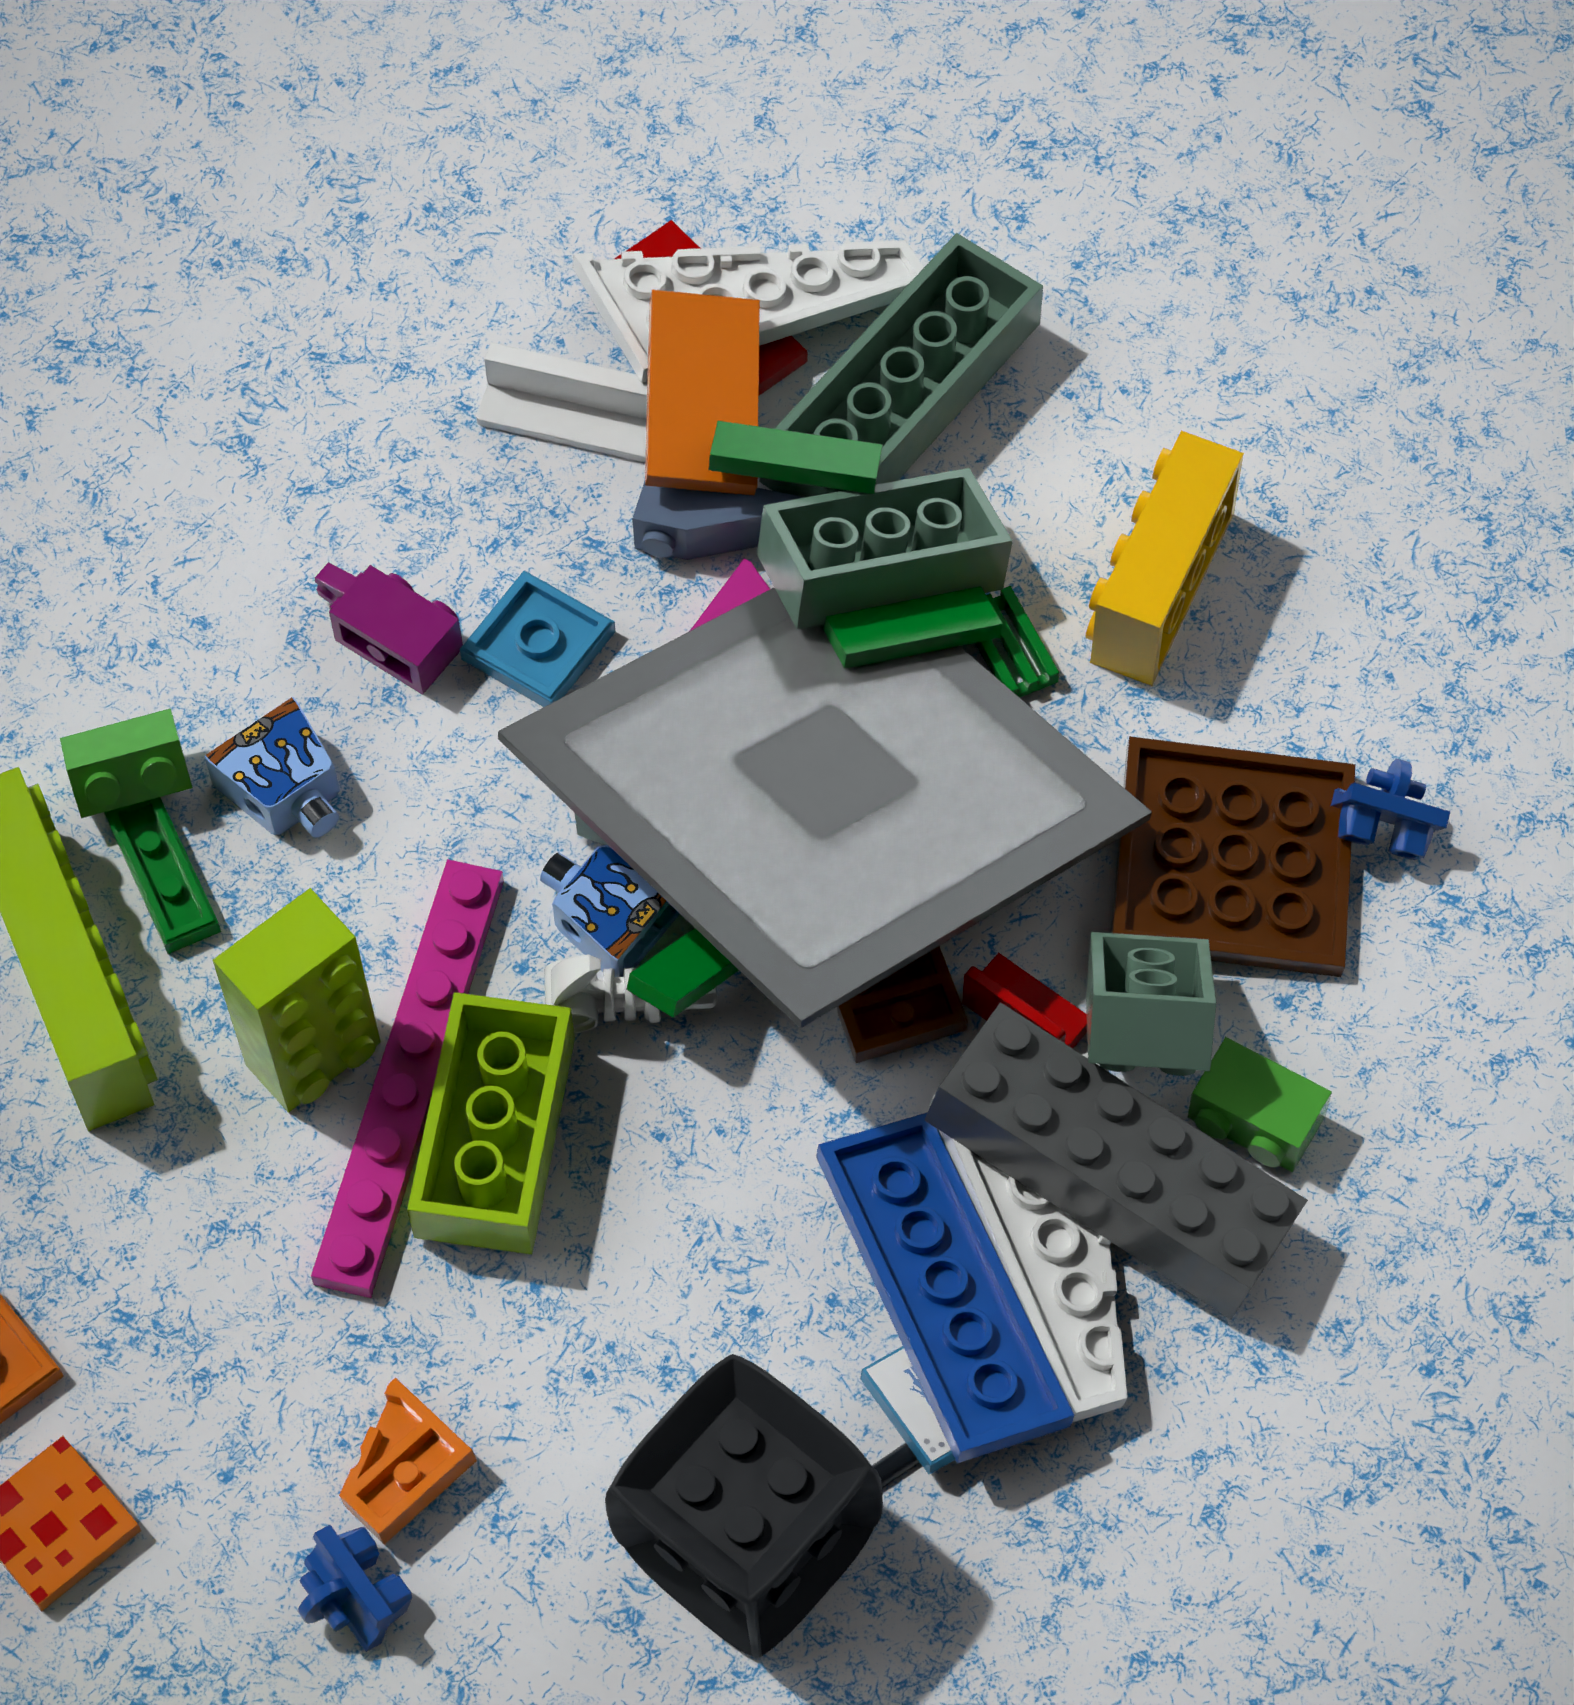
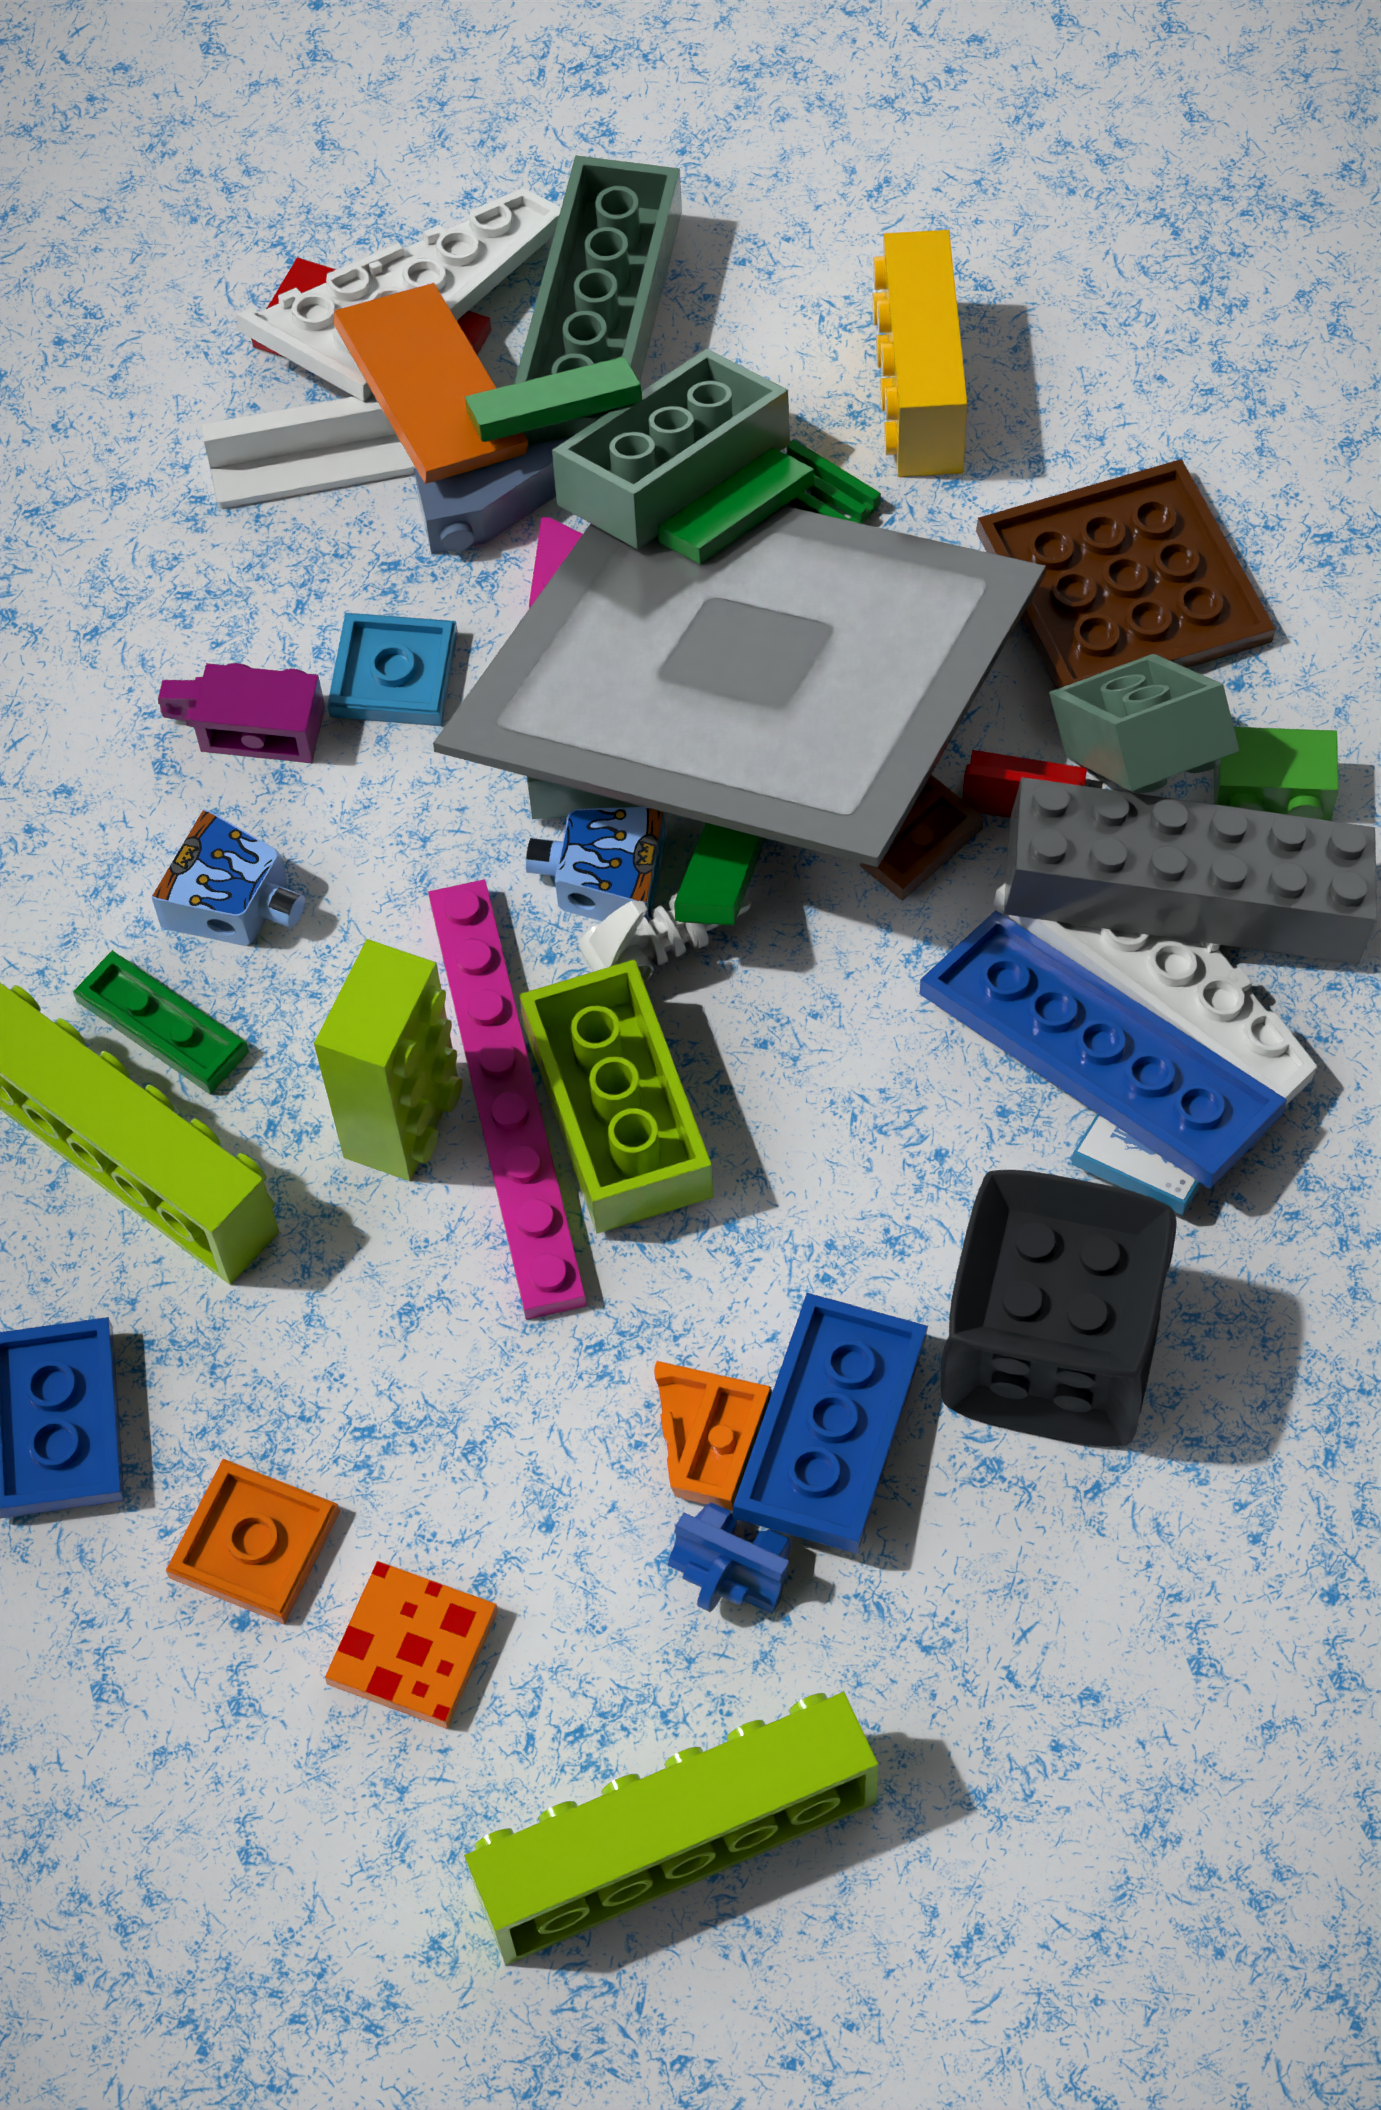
camera: 25 degrees left, 0 degrees up
(125, 763) = (76, 938): bright green brick -> none
(503, 1508) = (830, 1423): none -> blue plate
(1412, 821) = (1235, 472): blue hips -> none

